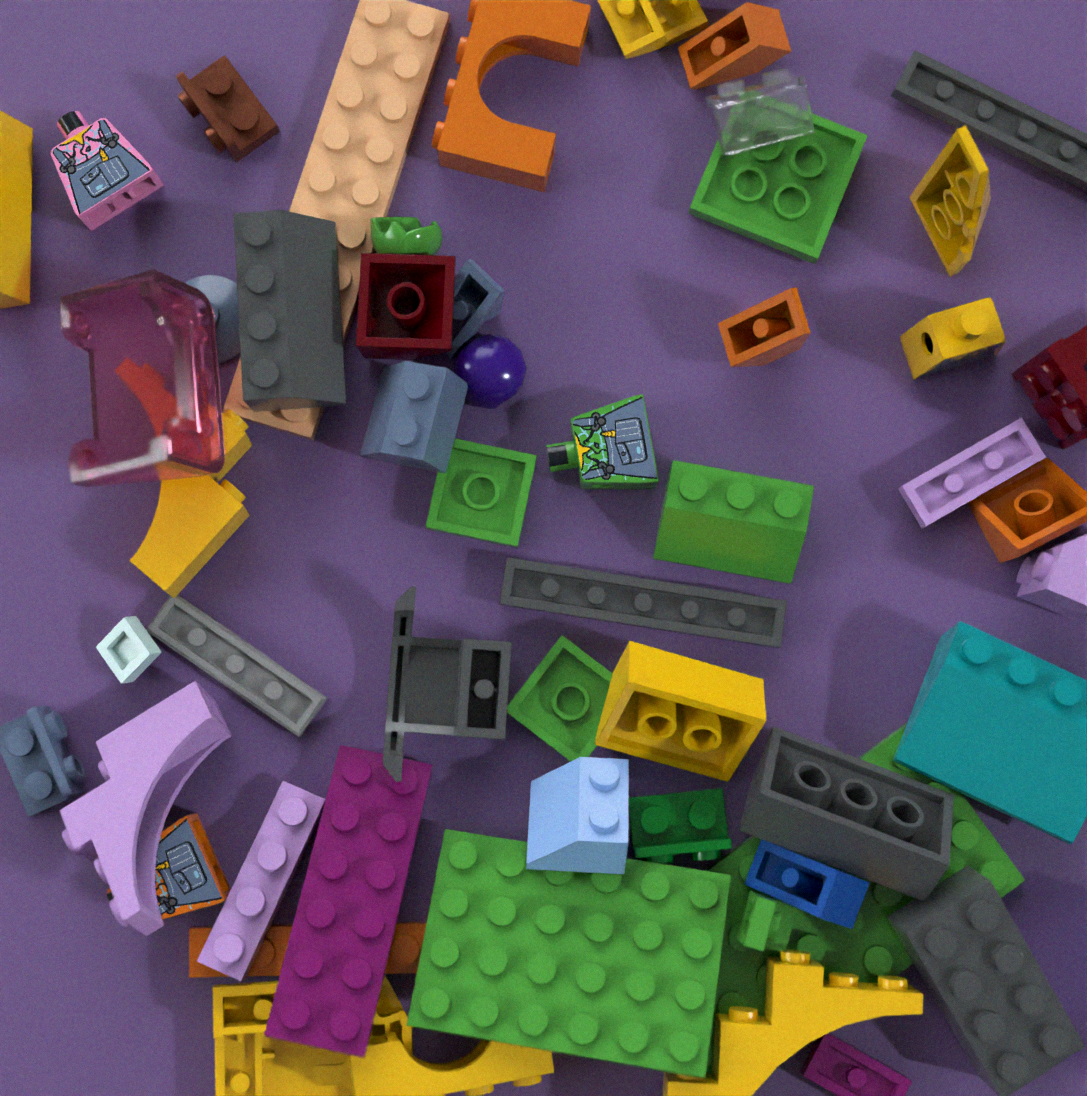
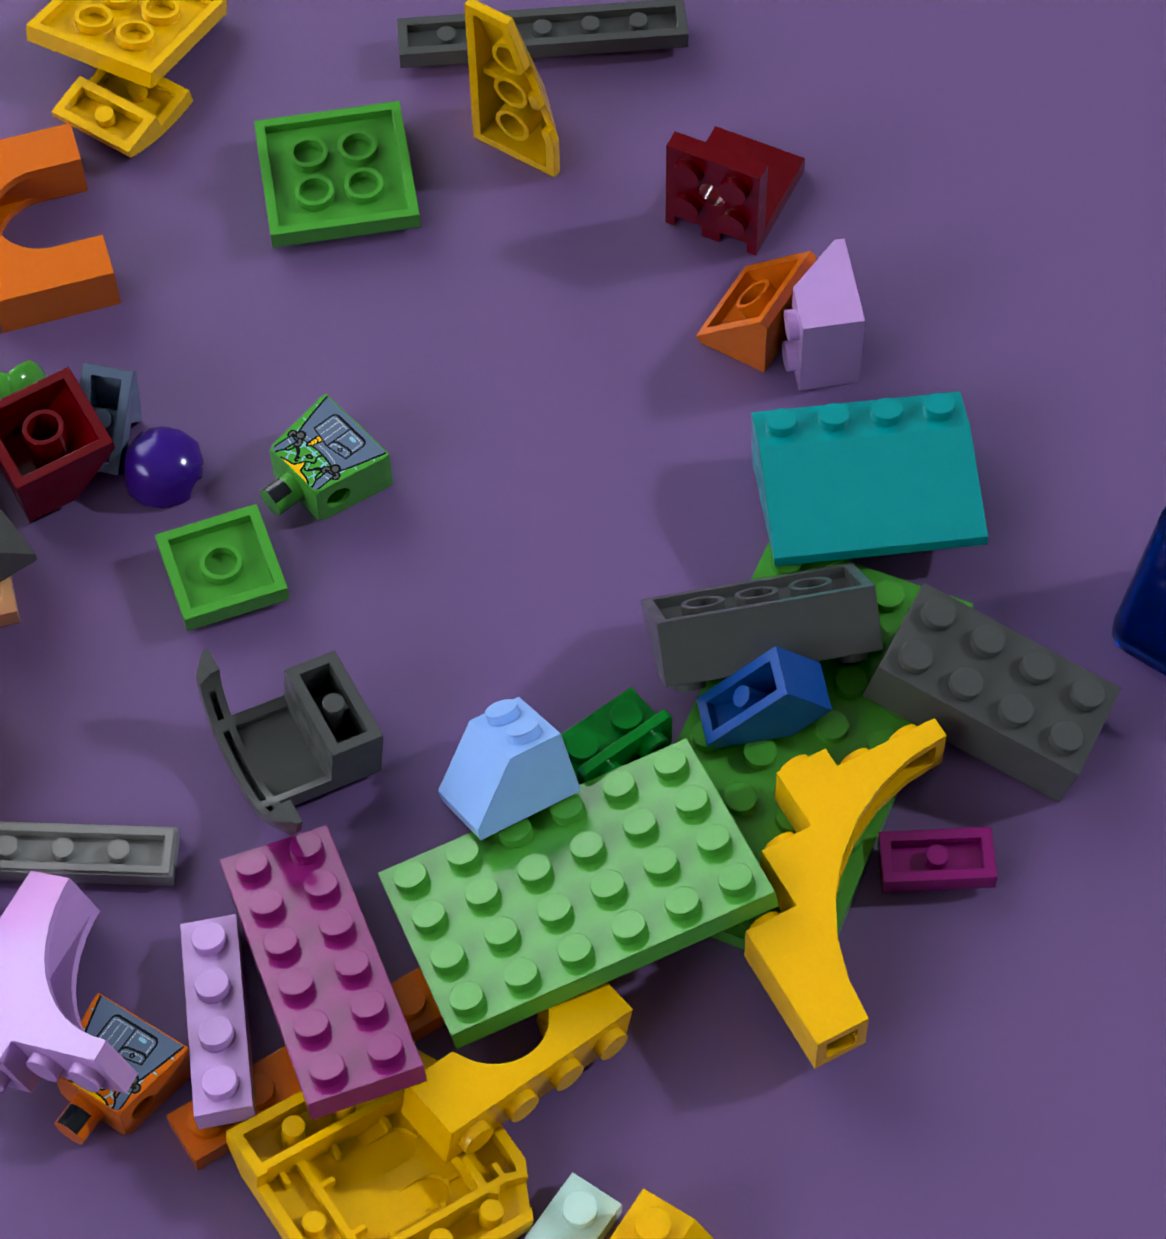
camera: 30 degrees left, 25 degrees down
(415, 416) = (110, 530): sand blue slope -> none
(564, 700) = (429, 692): bright green plate -> none
(643, 603) = (443, 575): dark grey plate -> none
(681, 711) = (544, 636): yellow slope -> none
(732, 522) = (484, 459): bright green slope -> none
(735, 46) = (228, 96): orange slope -> none
(761, 112) = (288, 124): clear bracket -> none
(765, 330) = (410, 281): orange slope -> none
(766, 923) = (745, 754): bright green bracket -> none
(957, 337) = (588, 208): yellow torso -> none
(971, 472) = (682, 309): lavender plate -> none

